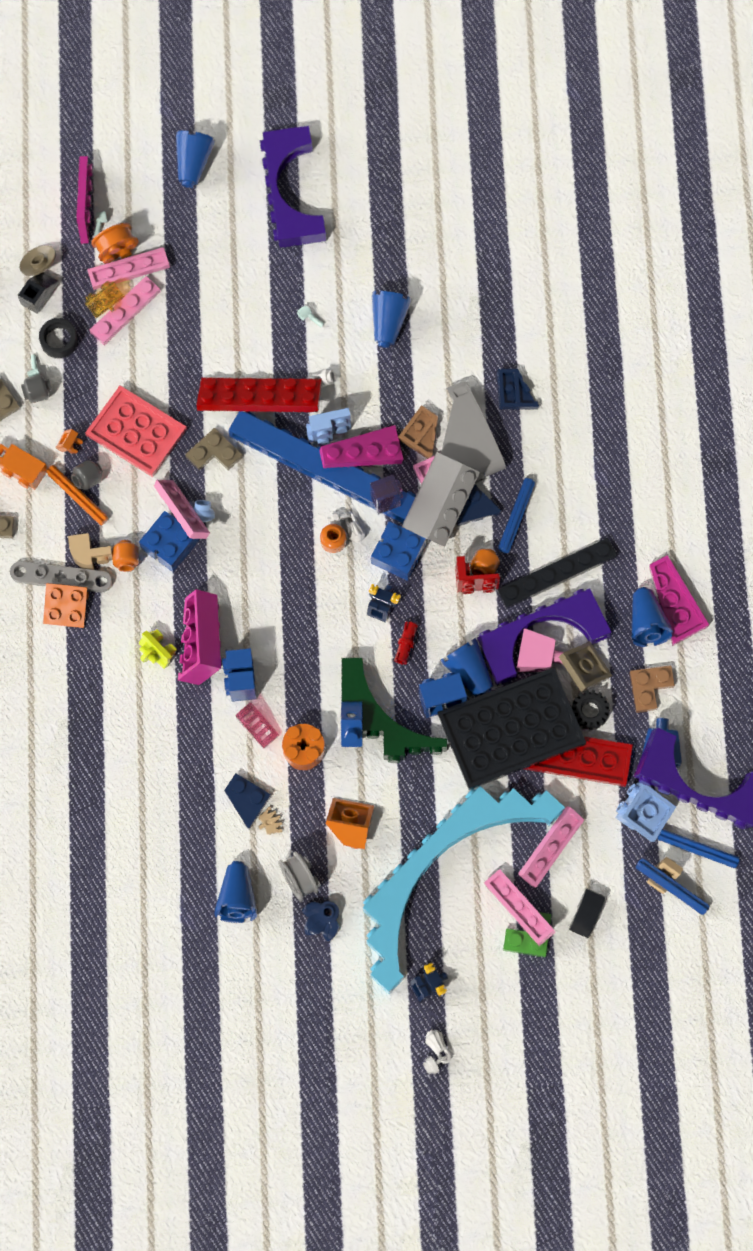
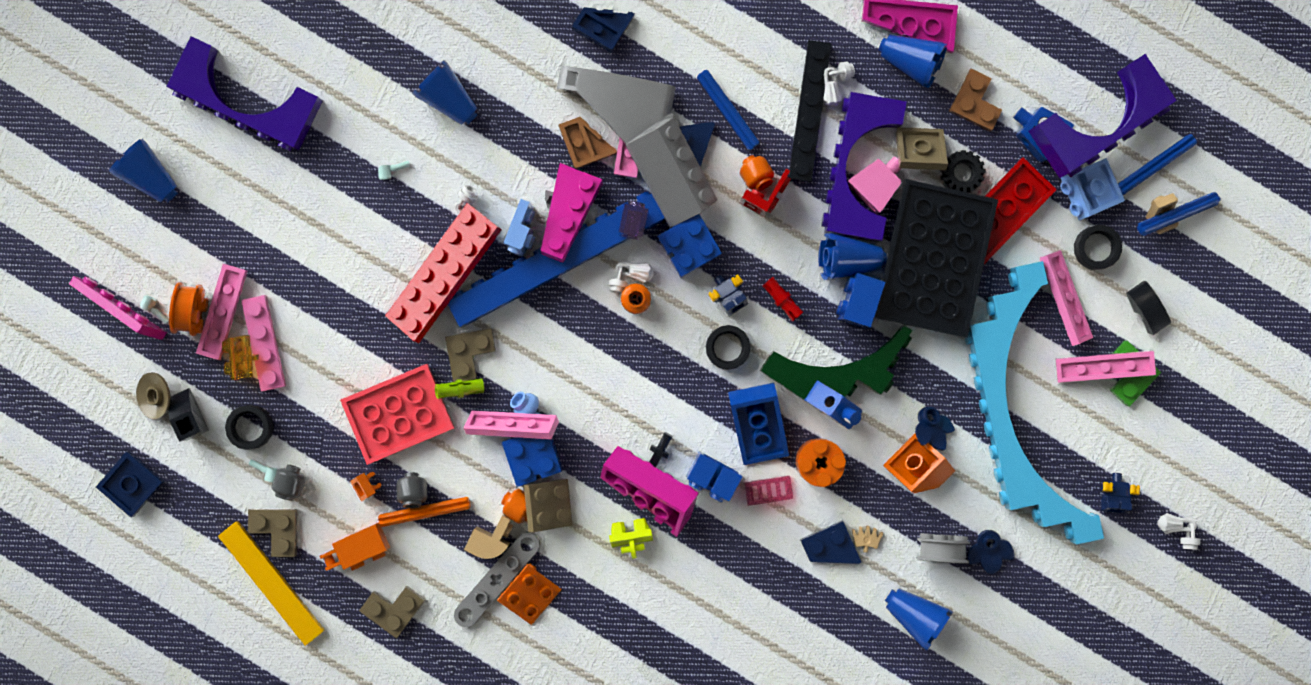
camera: 55 degrees left, 15 degrees up
(140, 574) = (548, 505): none -> dark tan plate
(183, 460) = (459, 388): none -> lime pin
(234, 629) = (659, 451): none -> black piece
(301, 685) = (758, 423): none -> blue slope
(343, 611) = (745, 343): none -> black tyre
(383, 815) = (933, 428): none -> dark blue plate
(580, 579) = (832, 93): none -> white piece
(605, 829) = (1116, 247): none -> black tyre

